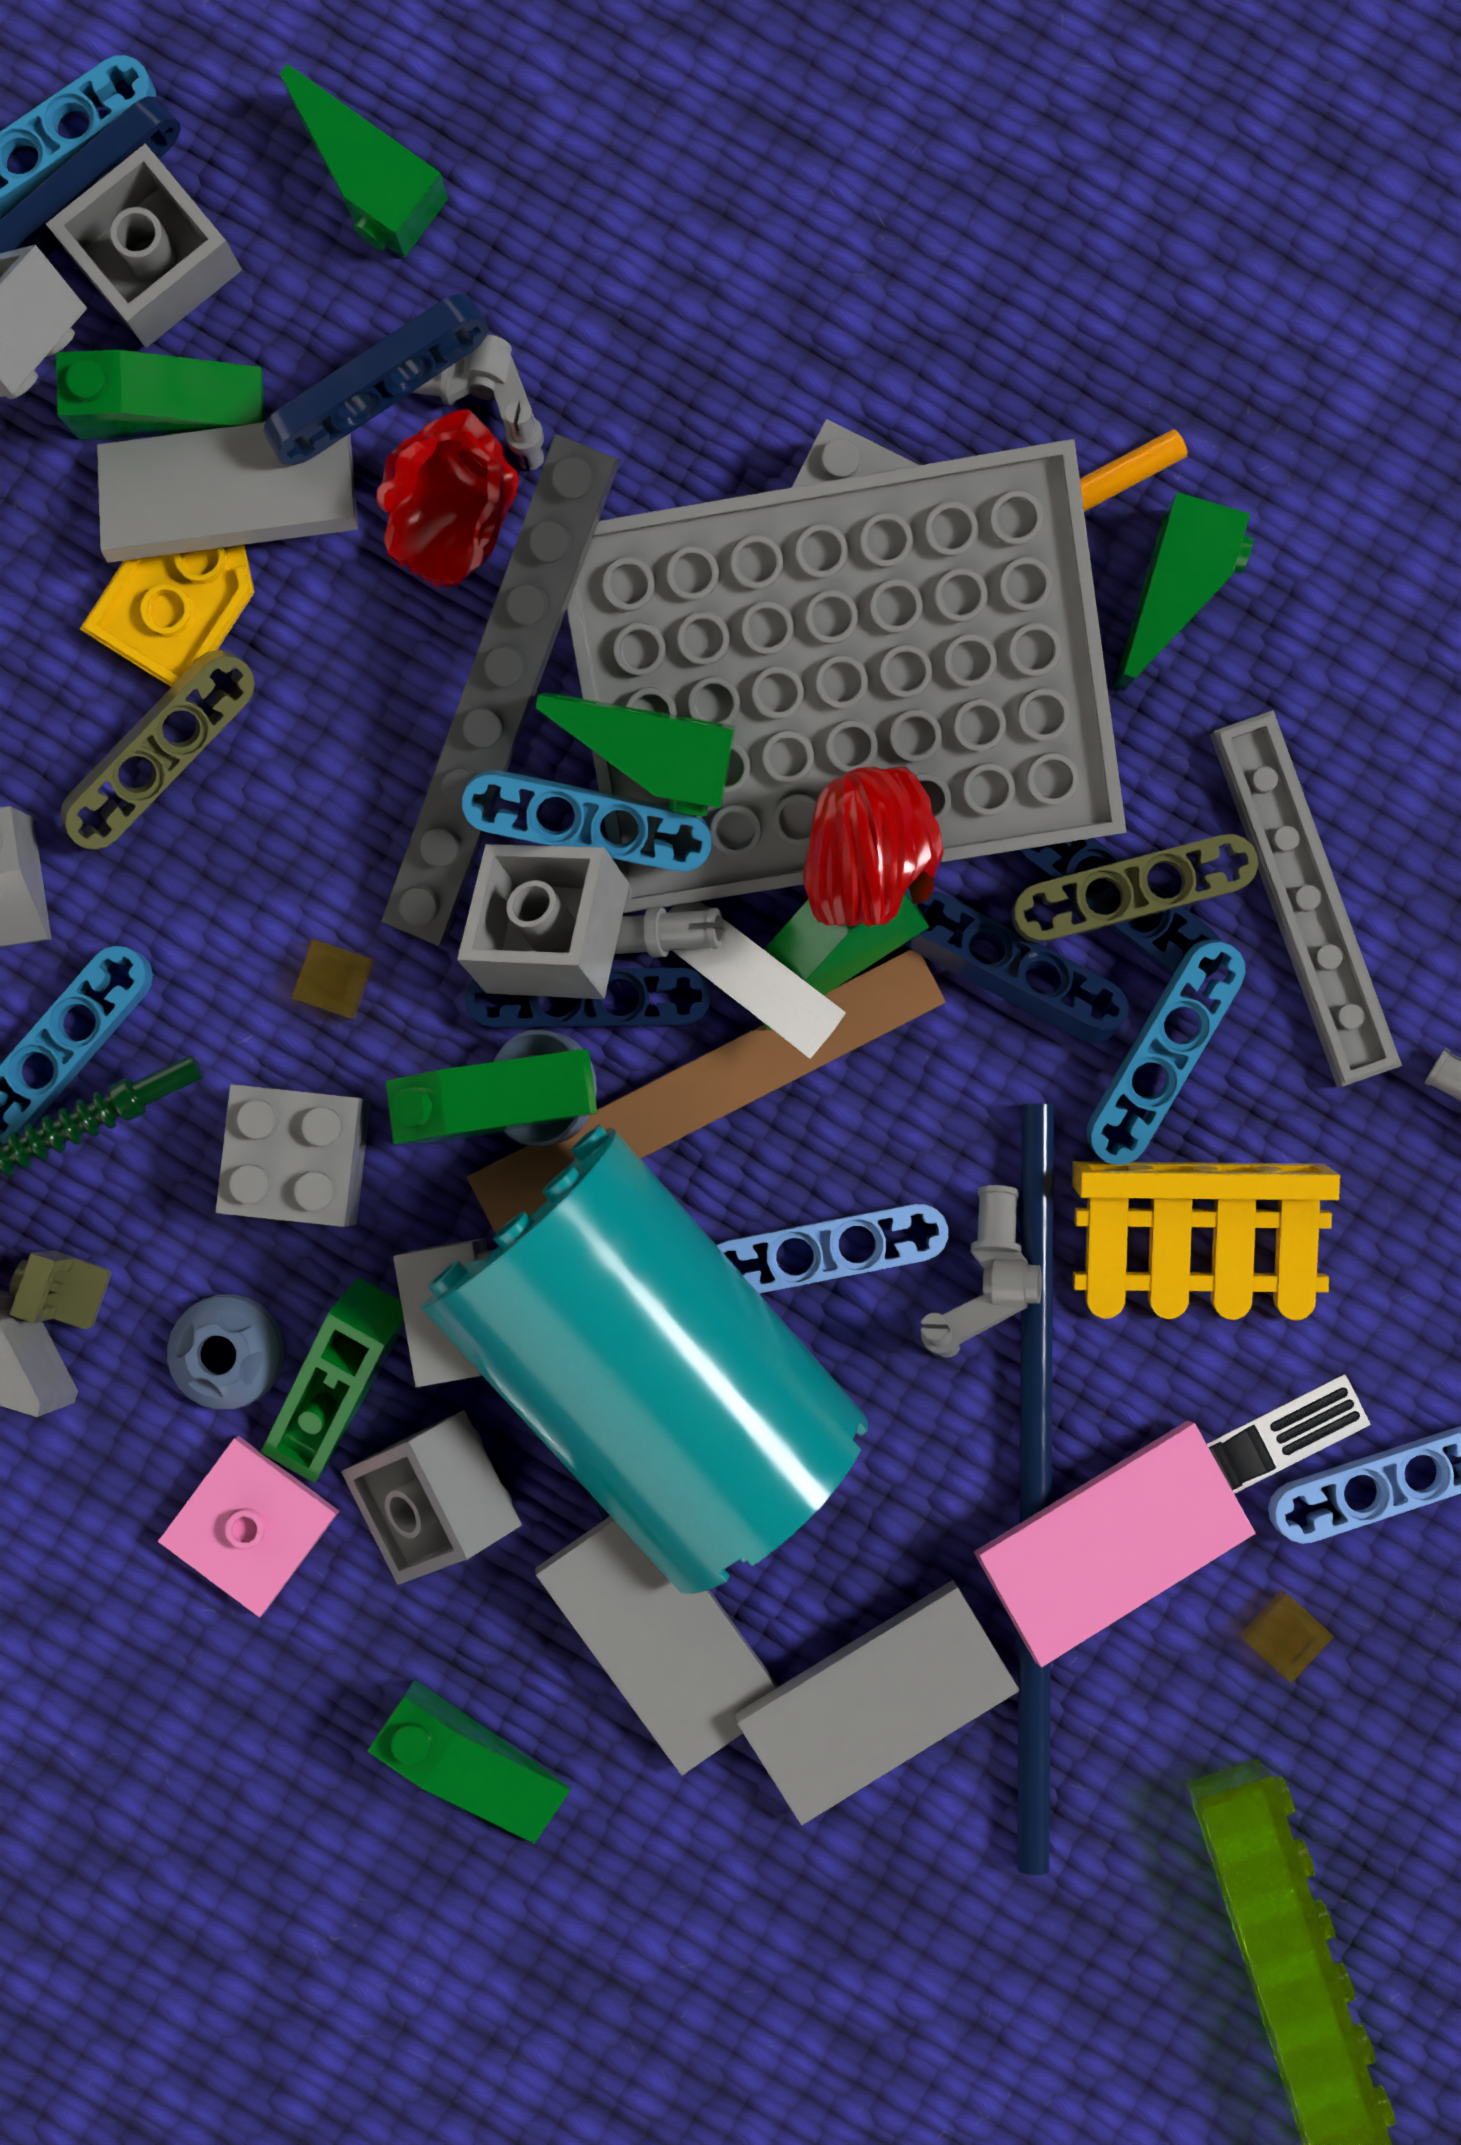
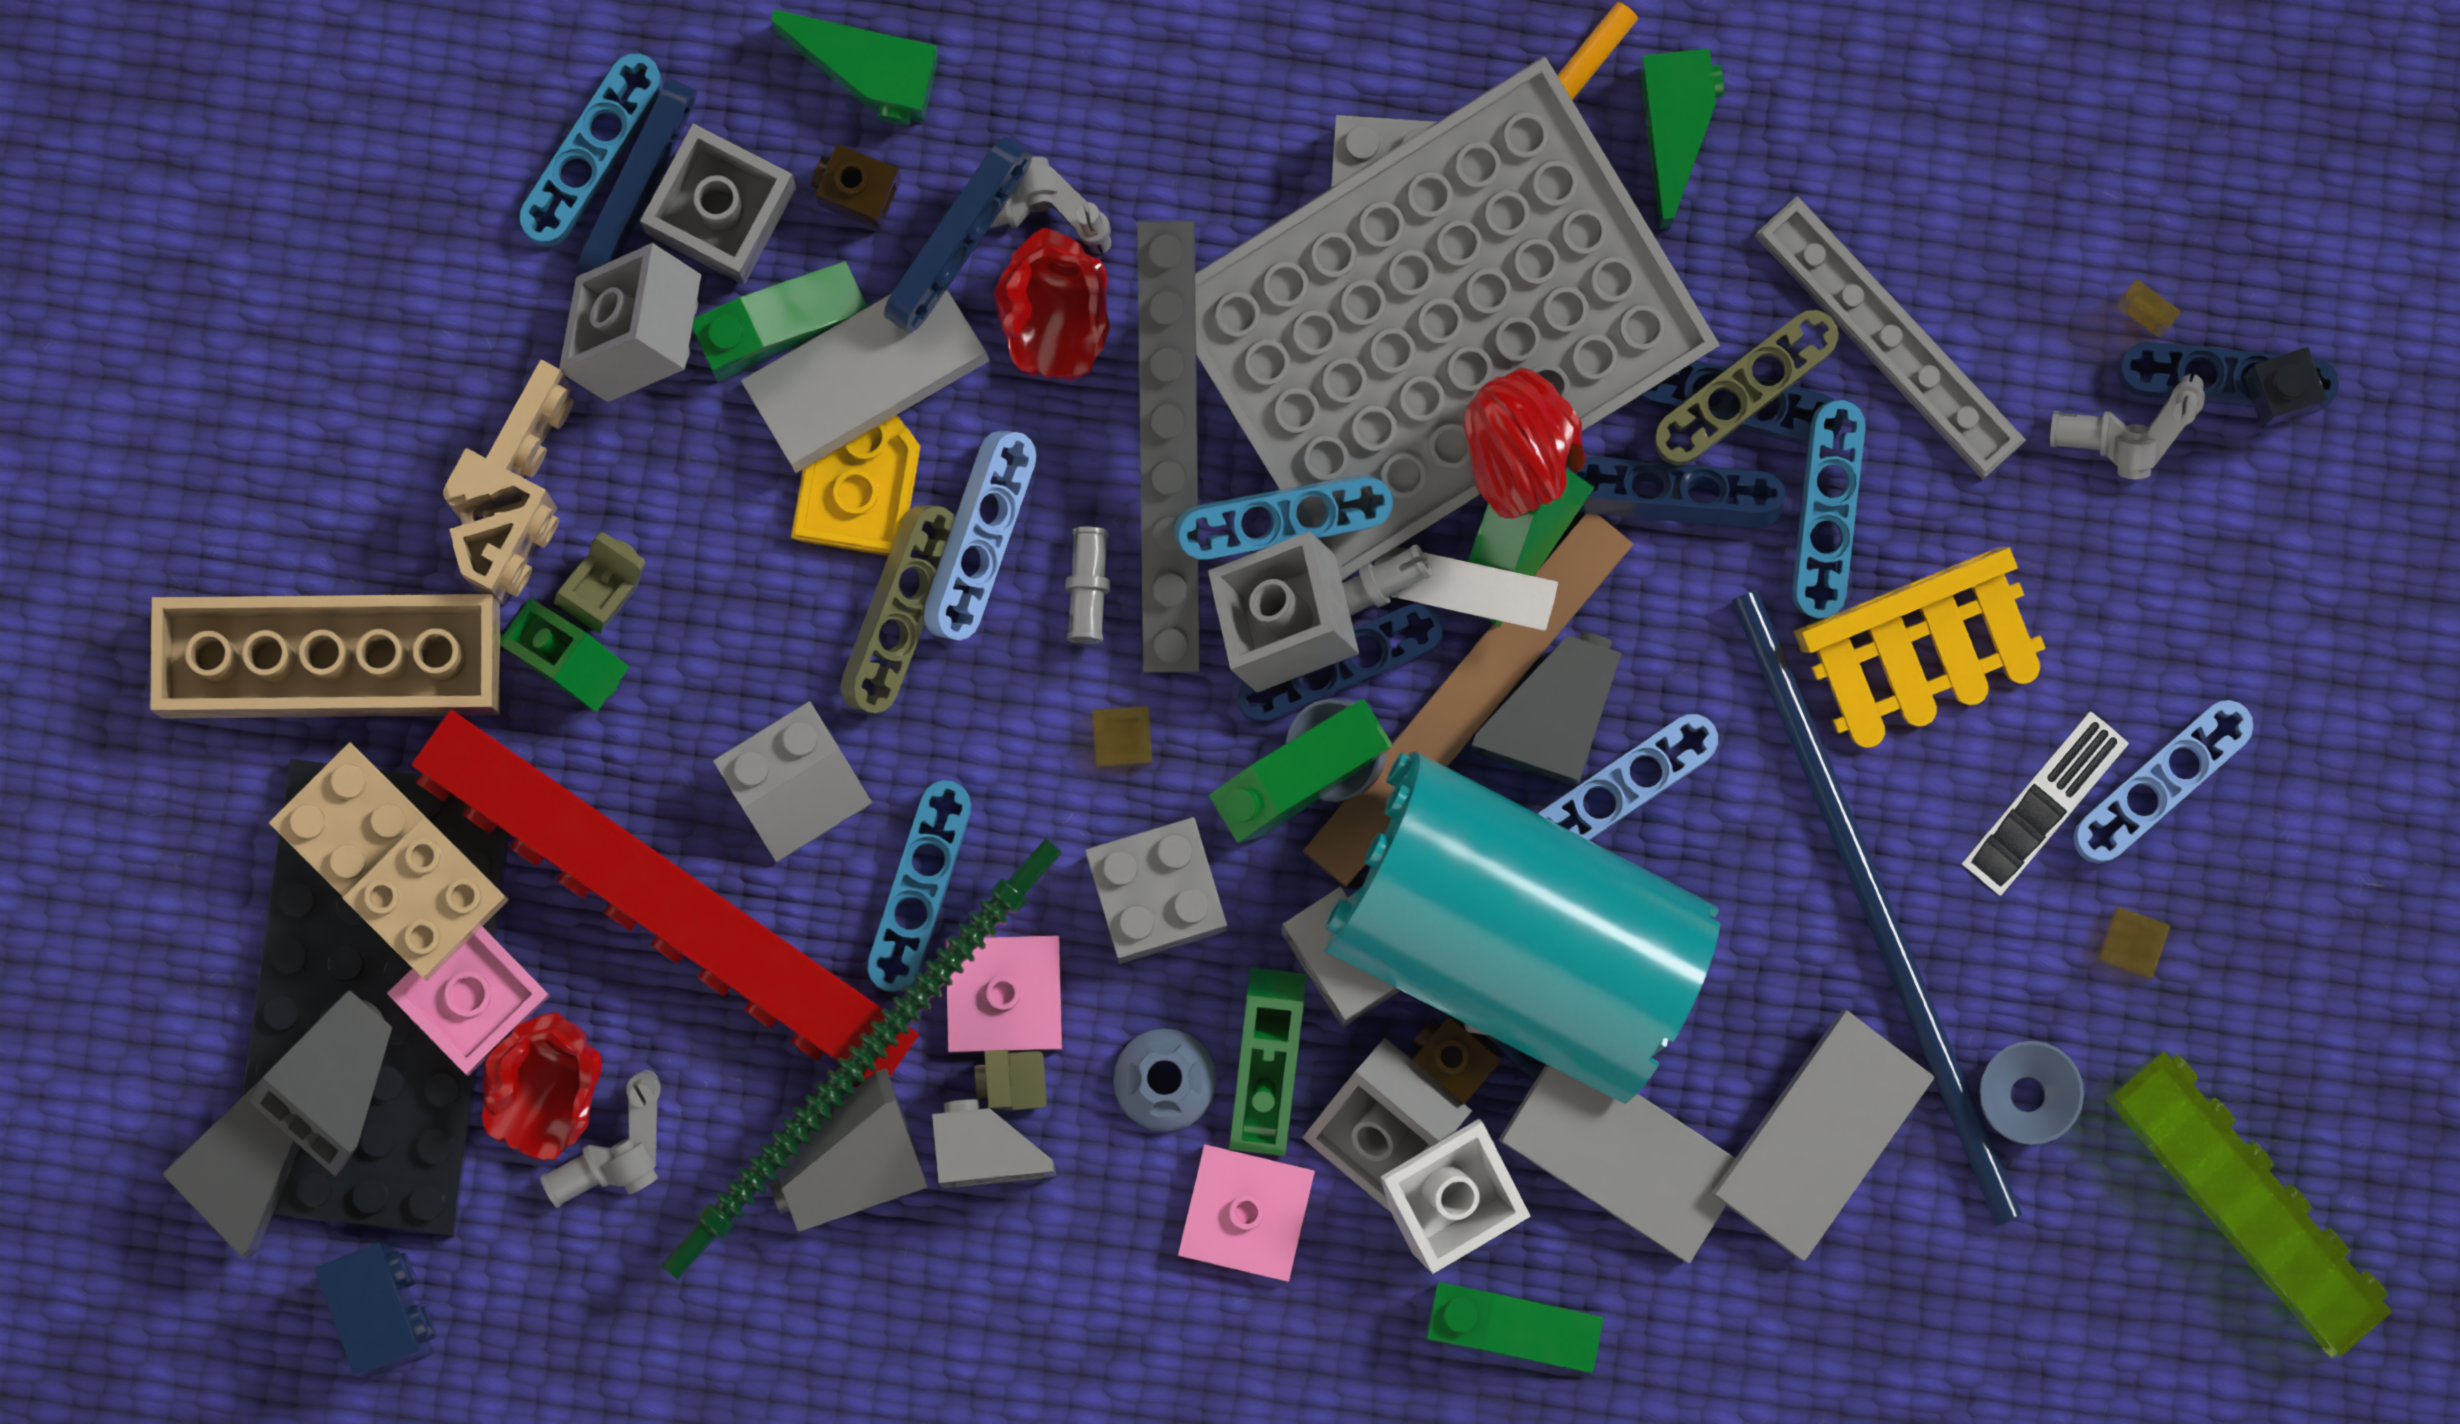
camera: 25 degrees left, 5 degrees down
(99, 1199) = (1007, 997): none -> bright pink plate
(264, 700) = (986, 538): none -> light blue beam
(300, 291) = (856, 186): none -> dark brown brick
(362, 807) = (1087, 585): none -> light grey pin
(458, 1617) = (1453, 1197): none -> white slope
(524, 1466) = (1454, 1057): none -> dark brown brick
(658, 750) = (1324, 436): green slope -> none
(789, 1143) = (1554, 712): none -> dark grey slope
(1006, 1278) = (1779, 743): light grey pin -> none
(1114, 1543) = (1959, 922): bright pink tile -> none
(1131, 1780) = (2060, 1087): none -> sand blue piece

